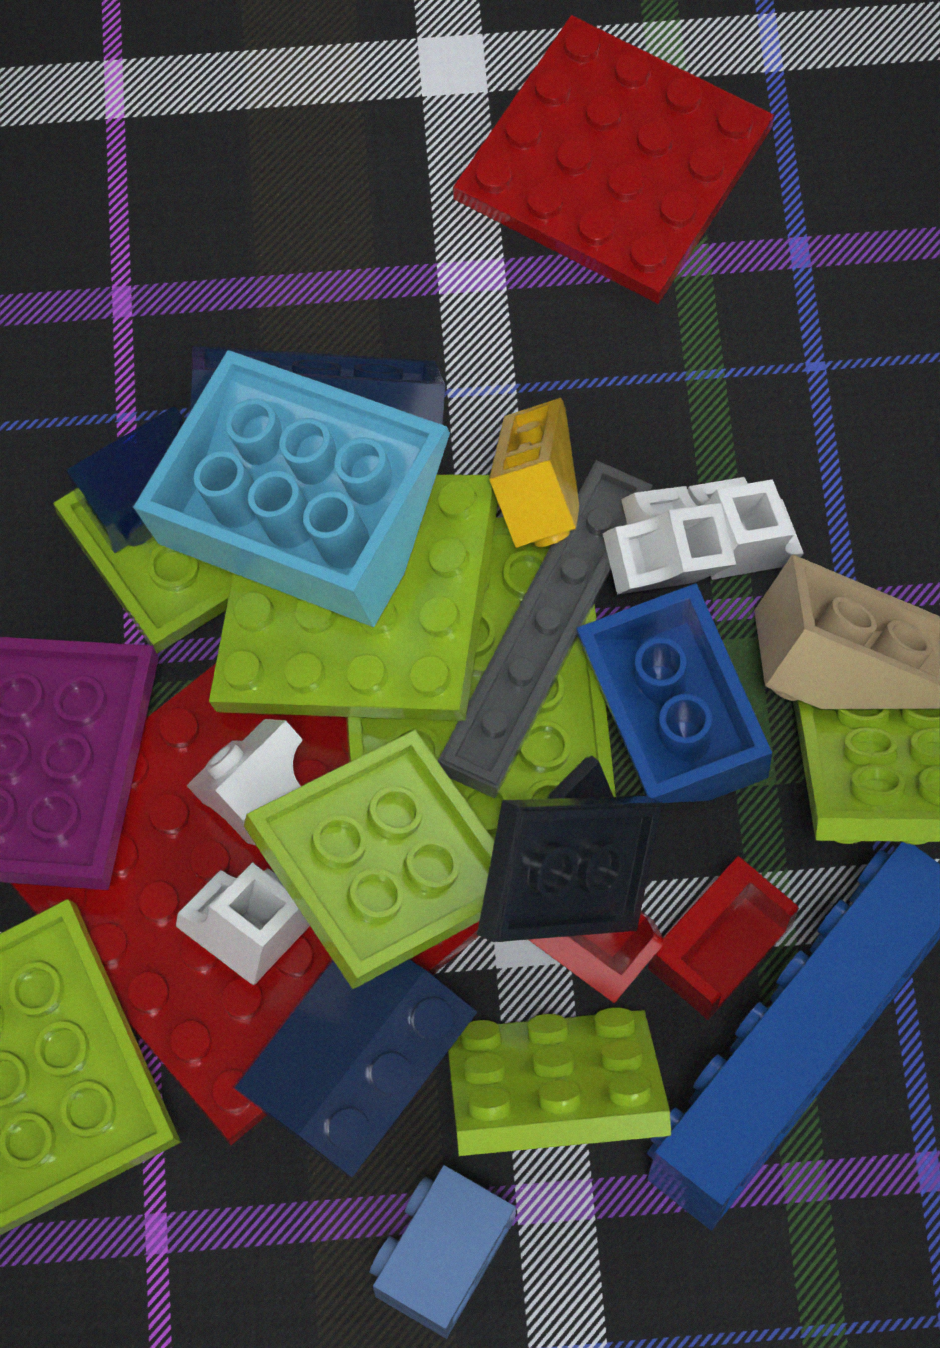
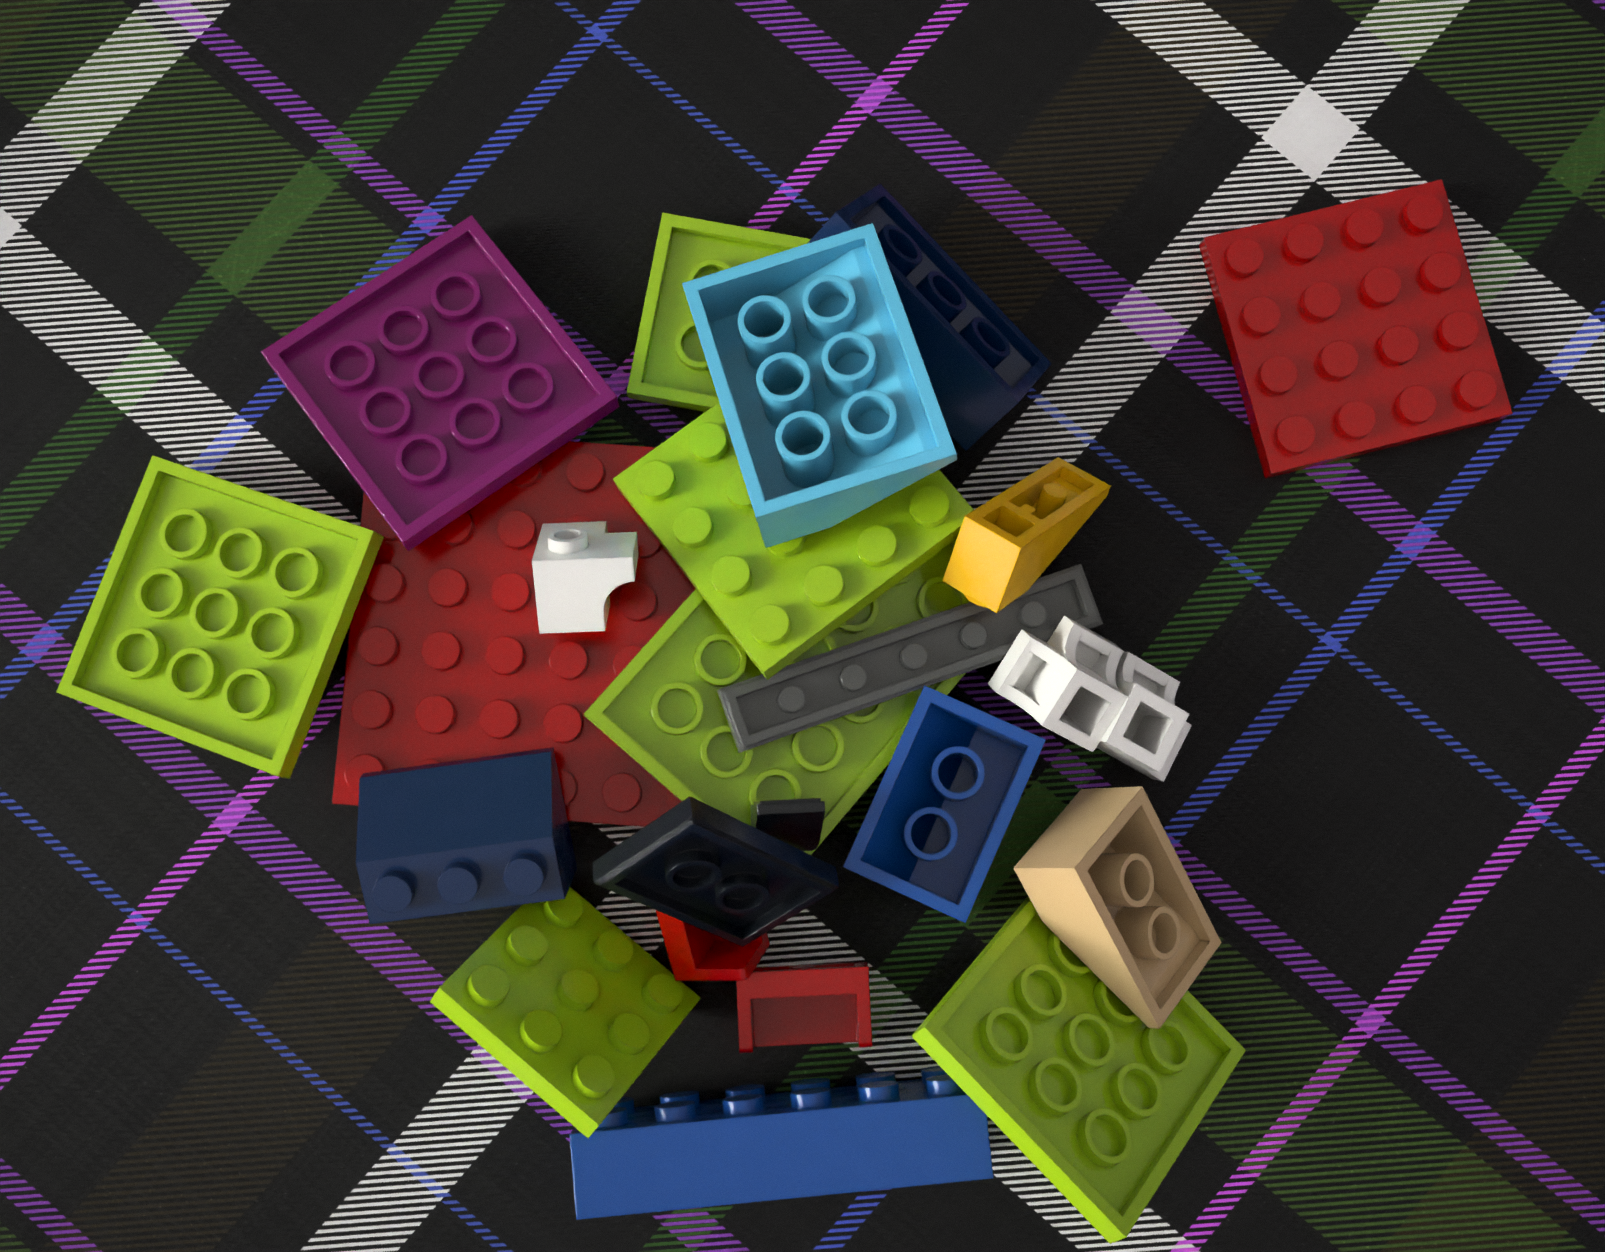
camera: 45 degrees right, 15 degrees up
(116, 475) = (718, 239): clear blue slope -> none
(244, 920) = (481, 669): white brick -> none
(378, 856) = (598, 724): lime plate -> none
(442, 1250) = (386, 1030): medium blue brick -> none

